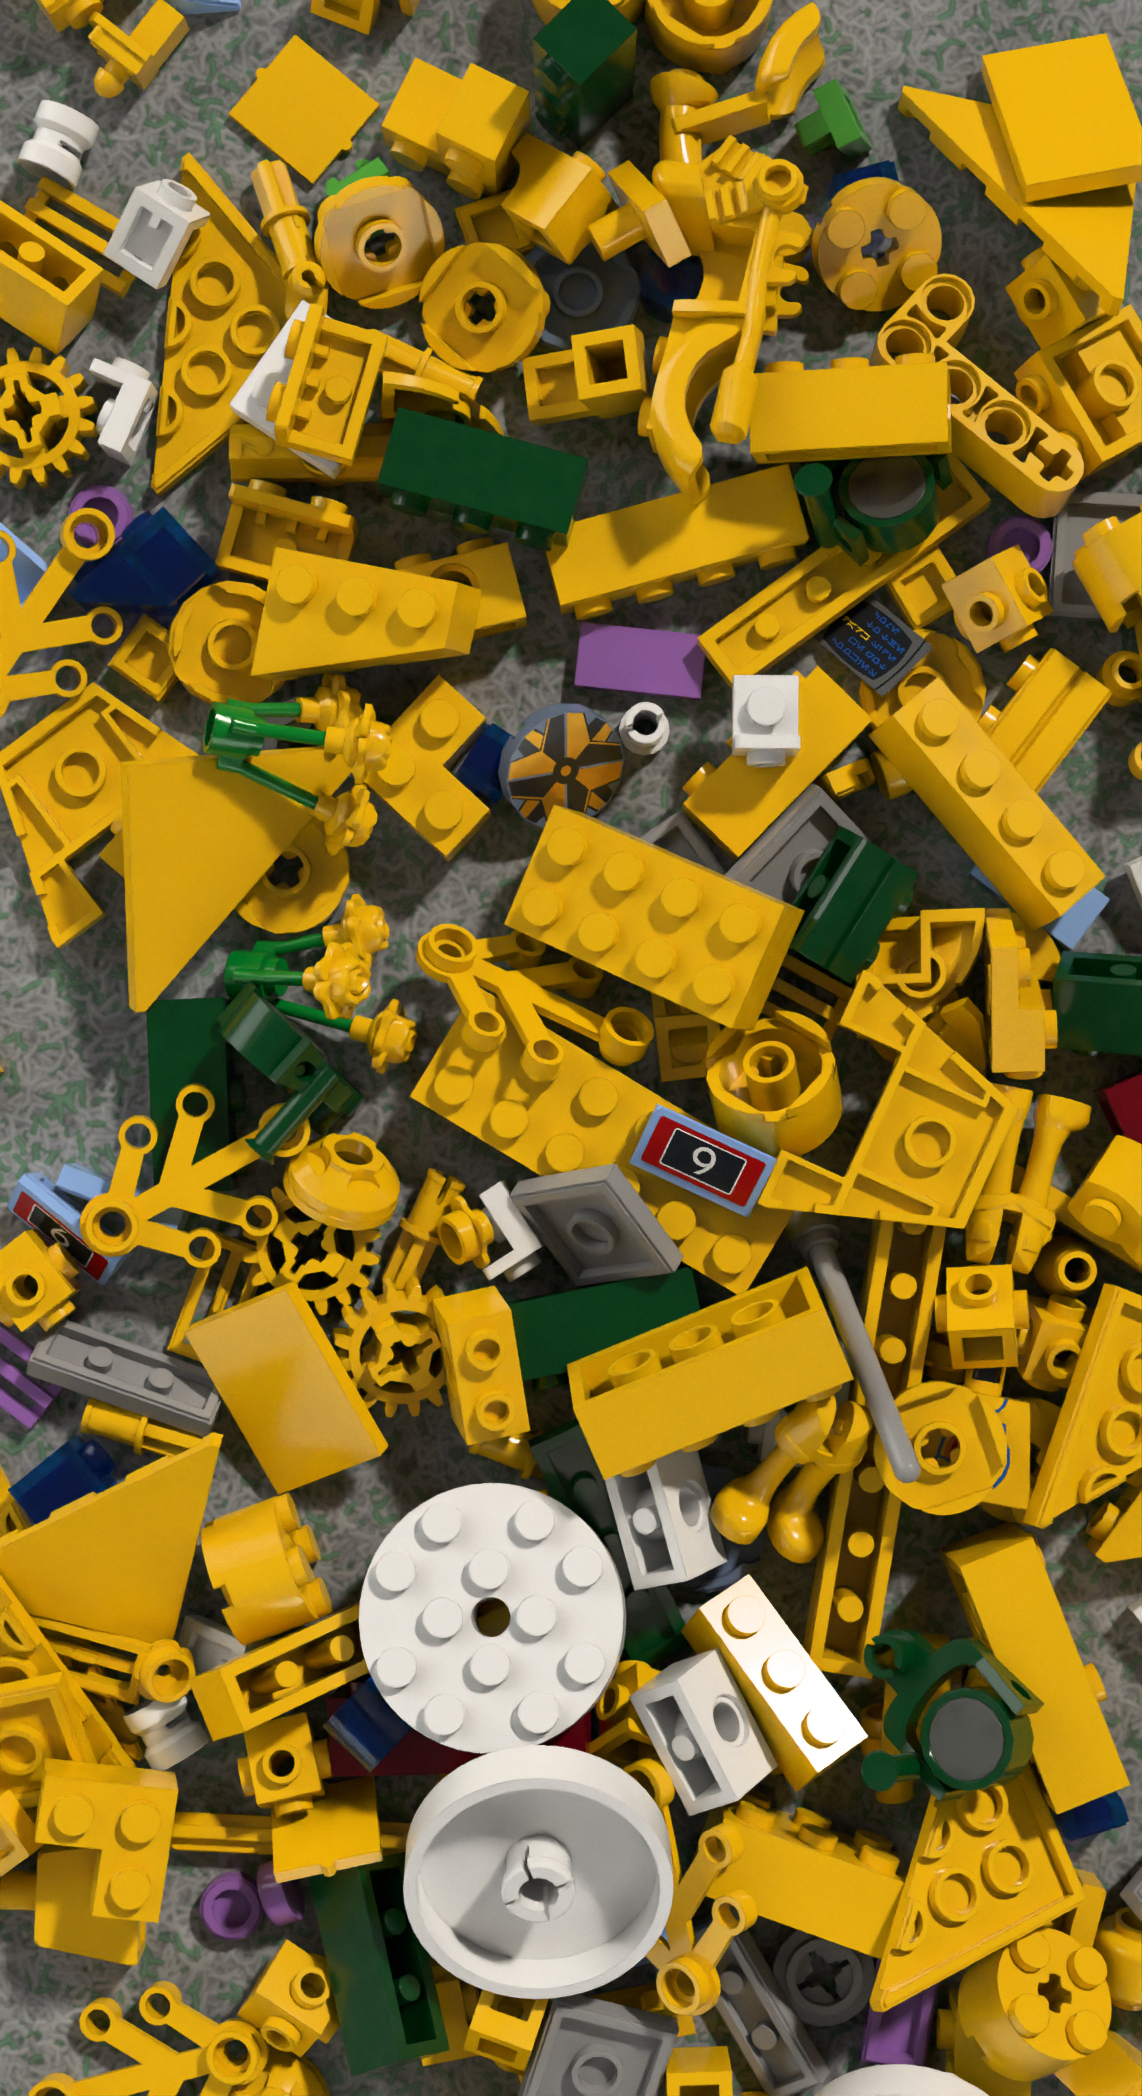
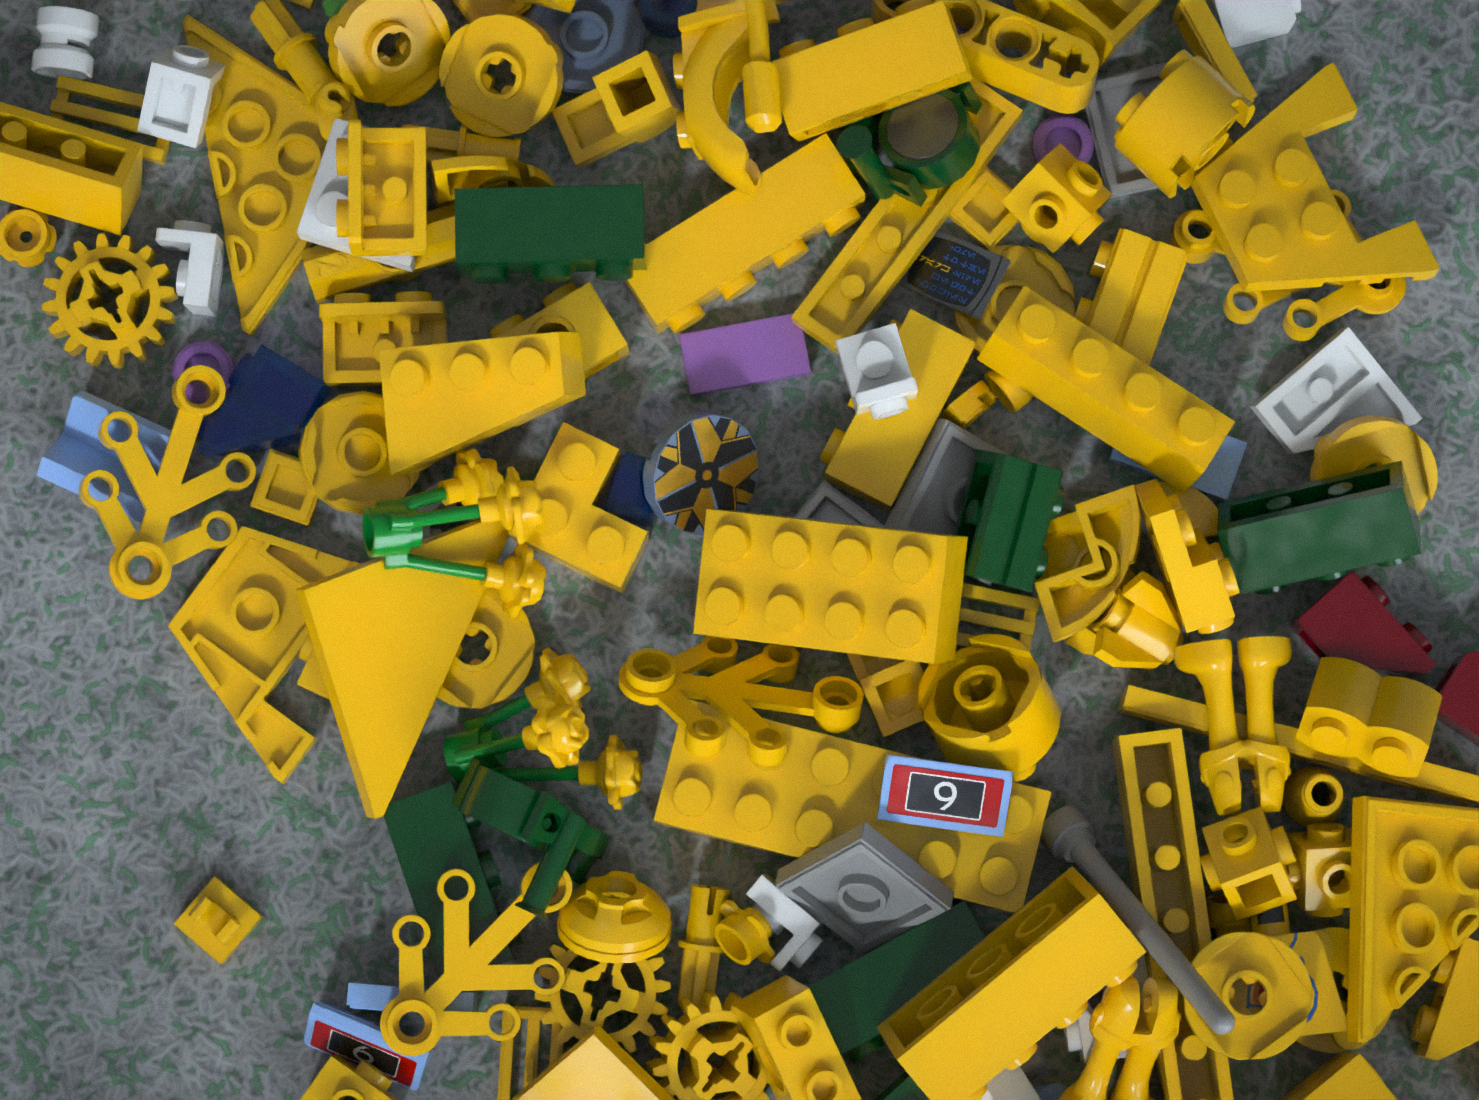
camera: 15 degrees left, 5 degrees down
(640, 743) = (770, 429): white pin -> none
(925, 1139) = (1144, 715): yellow wing -> none

